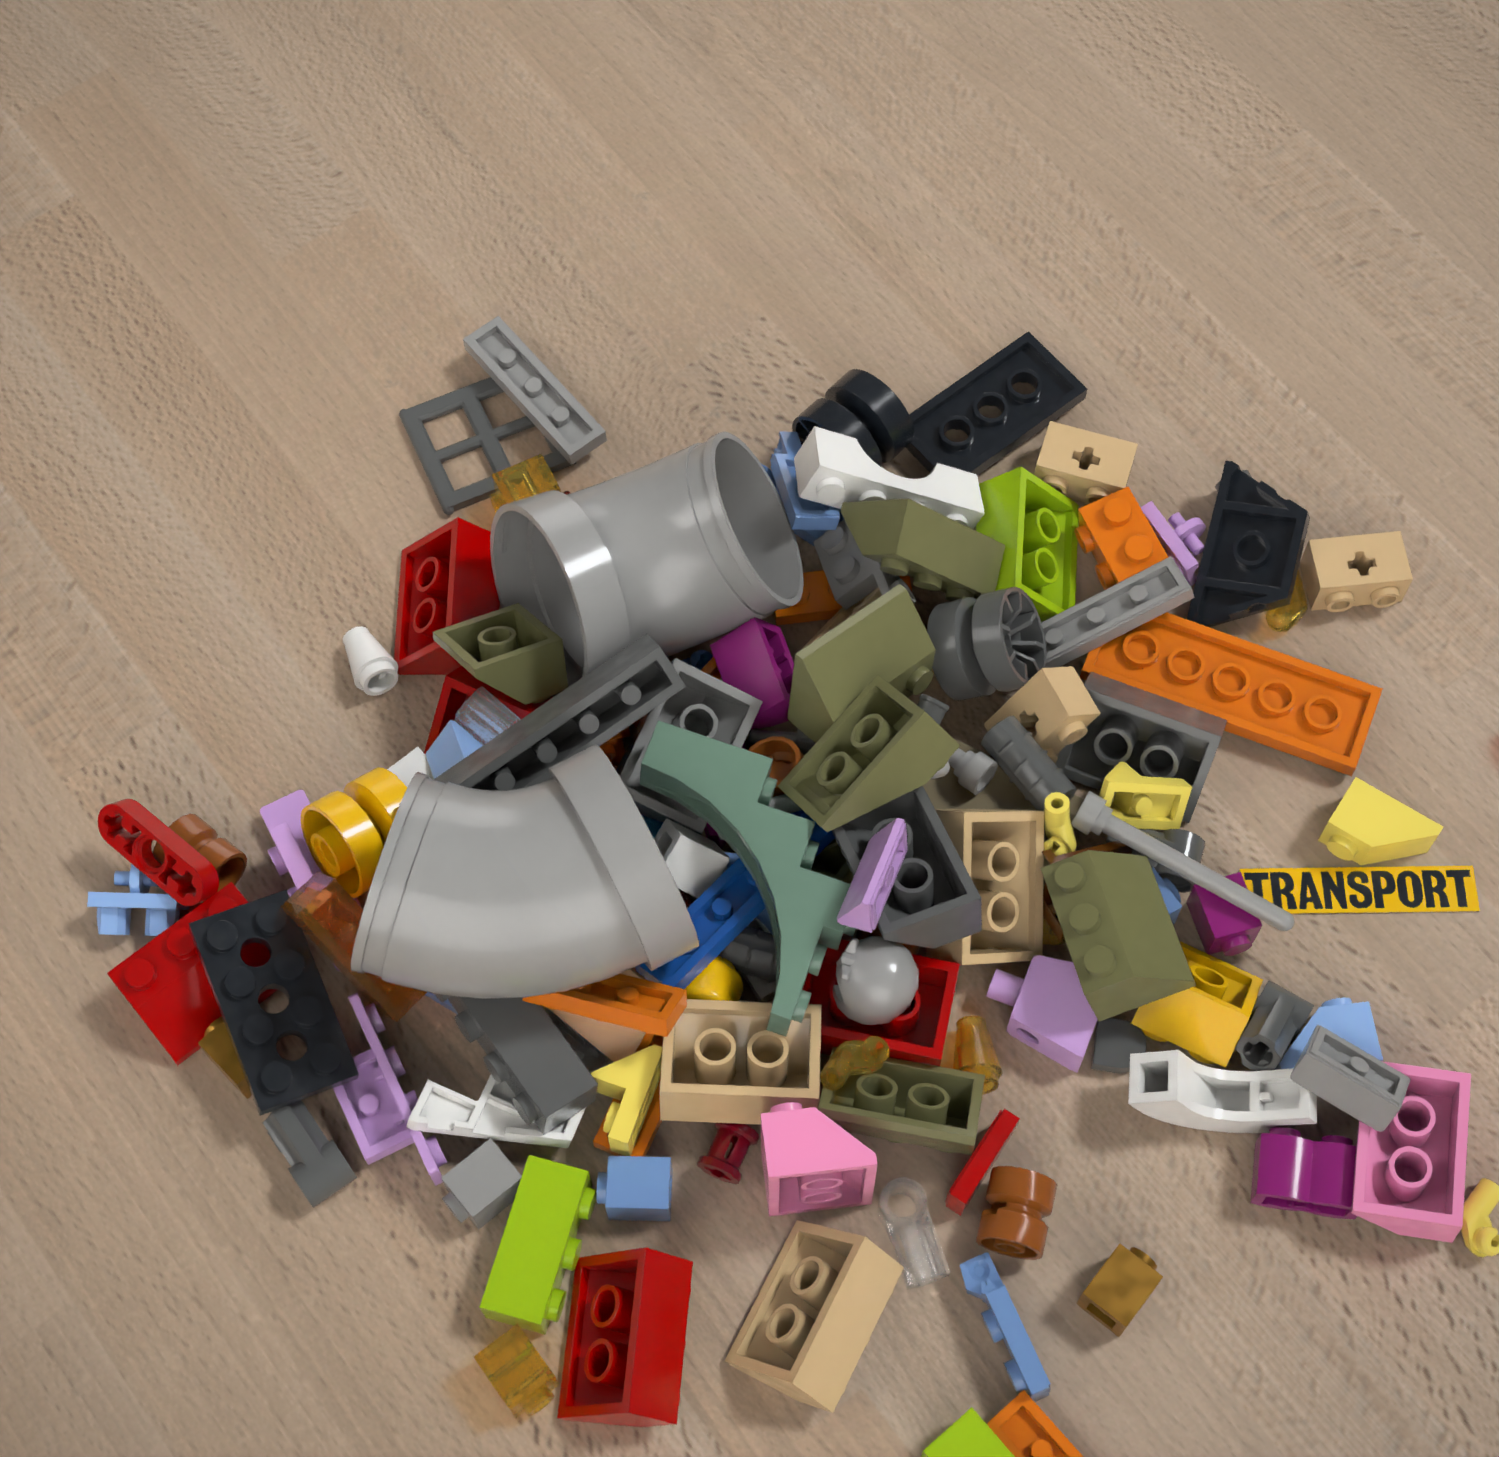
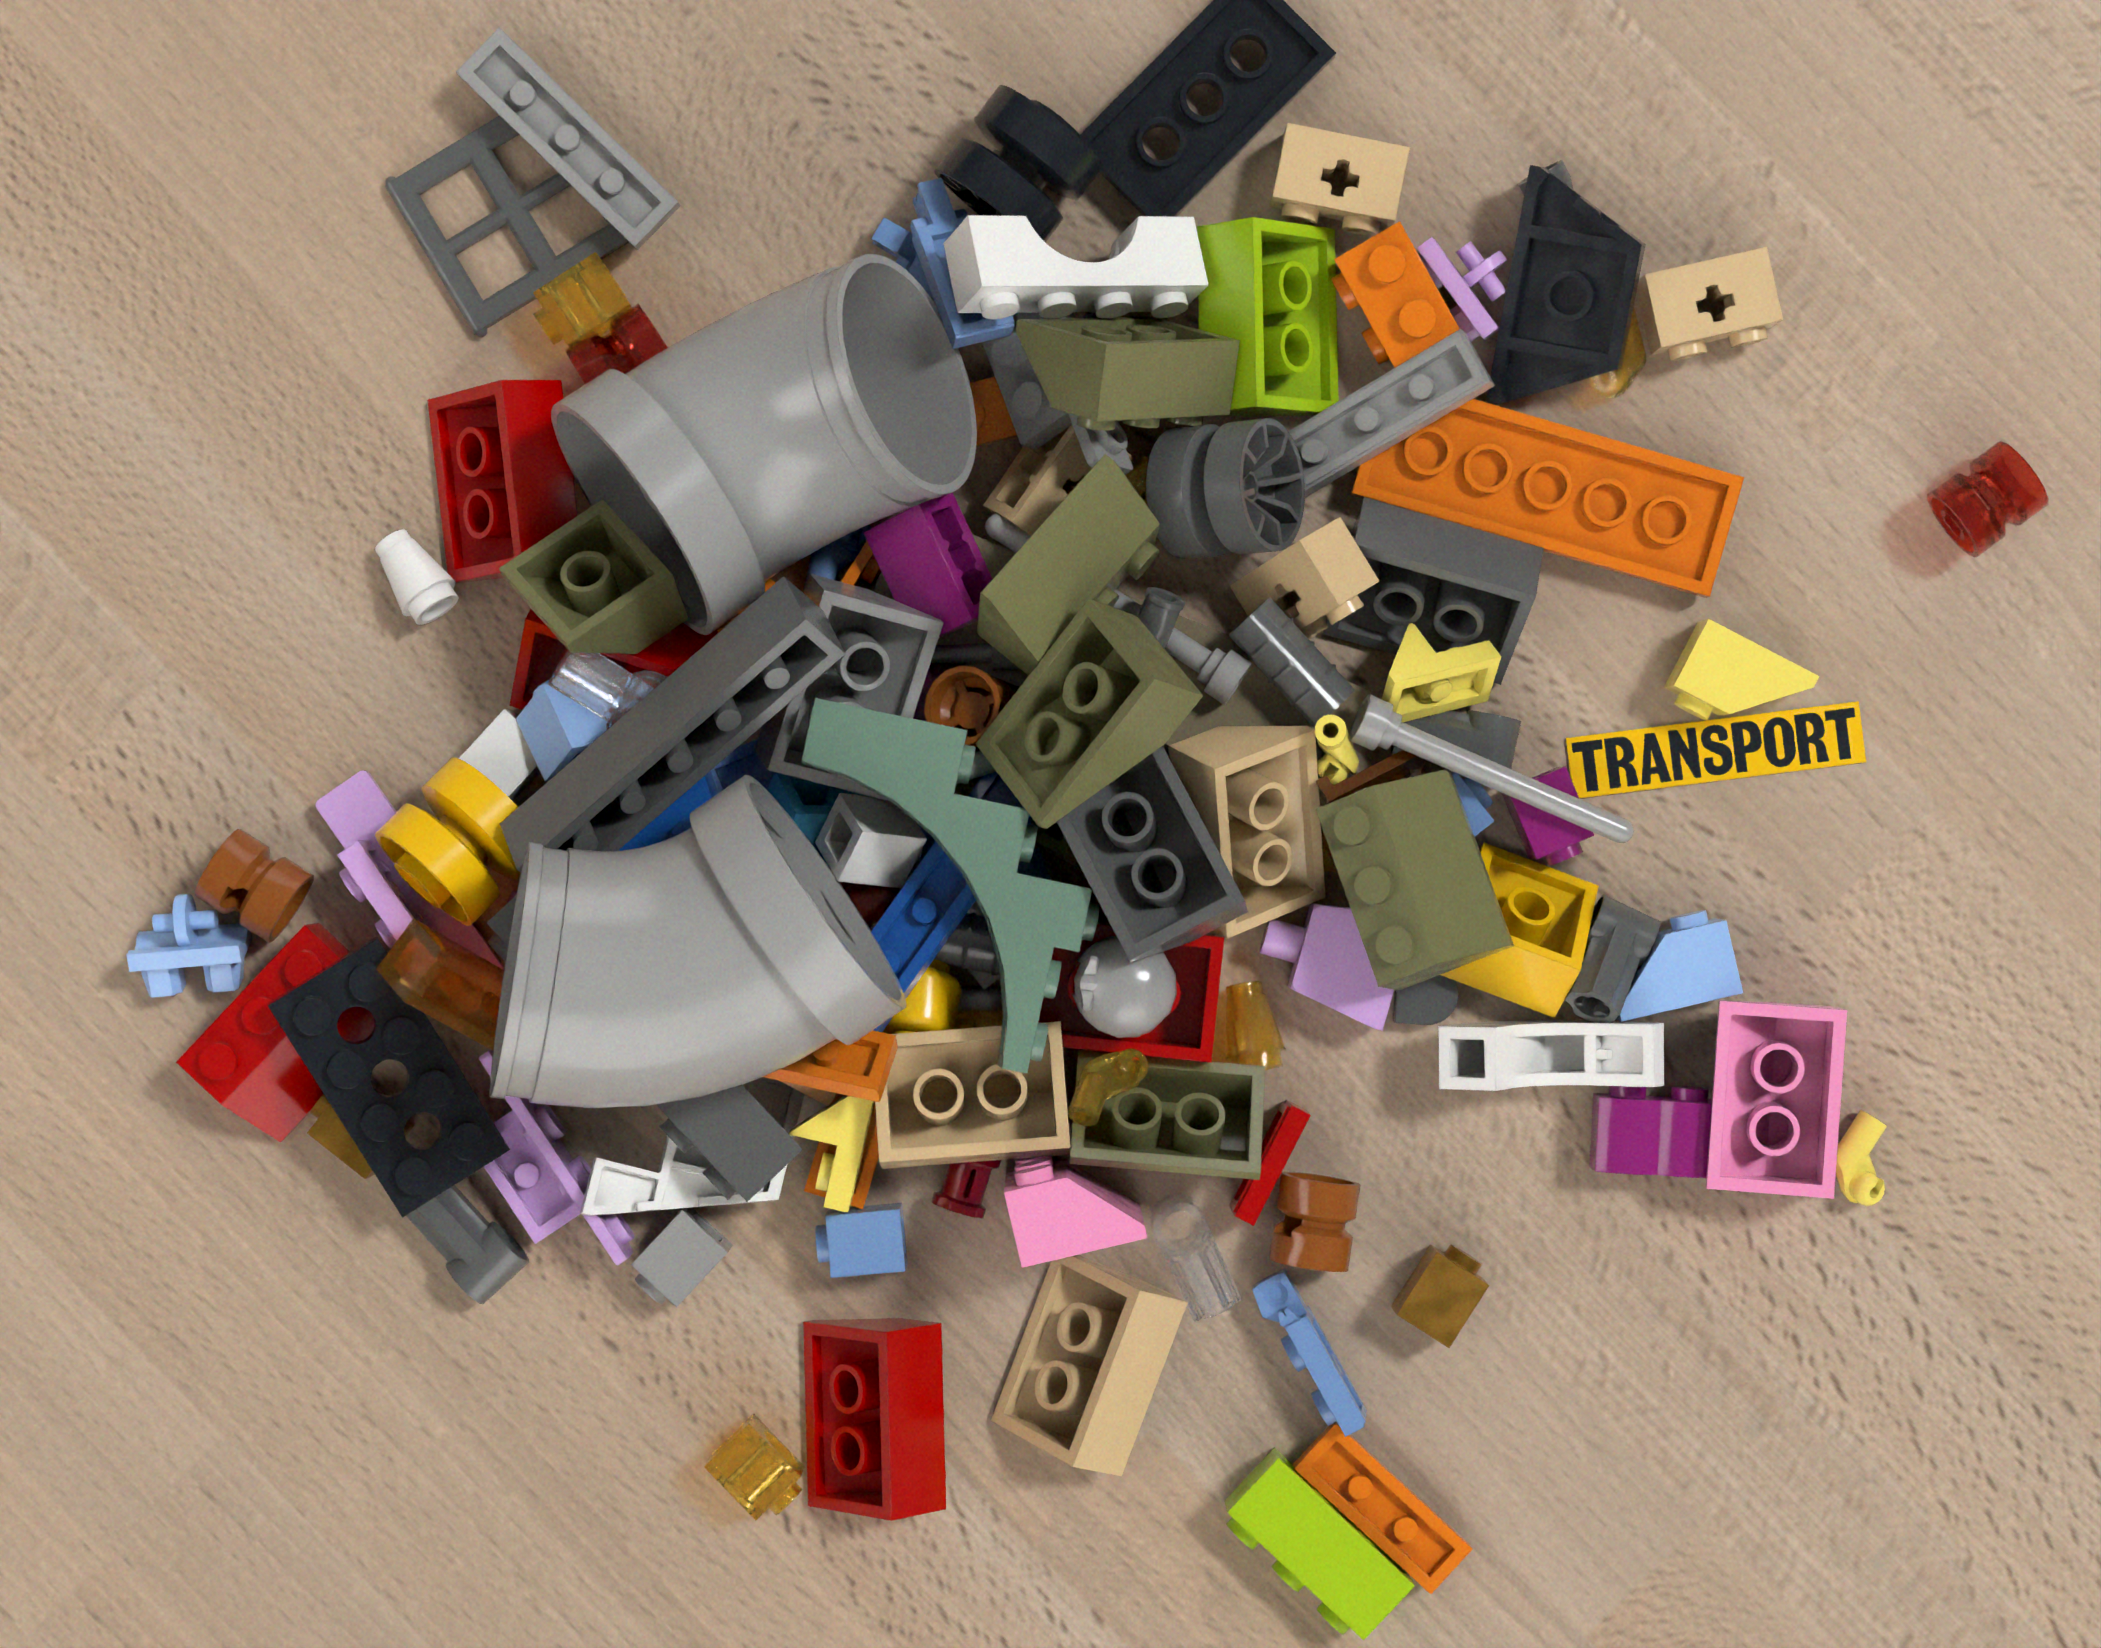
camera: 10 degrees left, 25 degrees up
(190, 866) = (236, 920): red beam -> none
(539, 1245) = (758, 1320): lime brick -> none
(874, 877) = (1109, 889): lavender slope -> none
(1350, 1079) = (1703, 1035): light grey slope -> none

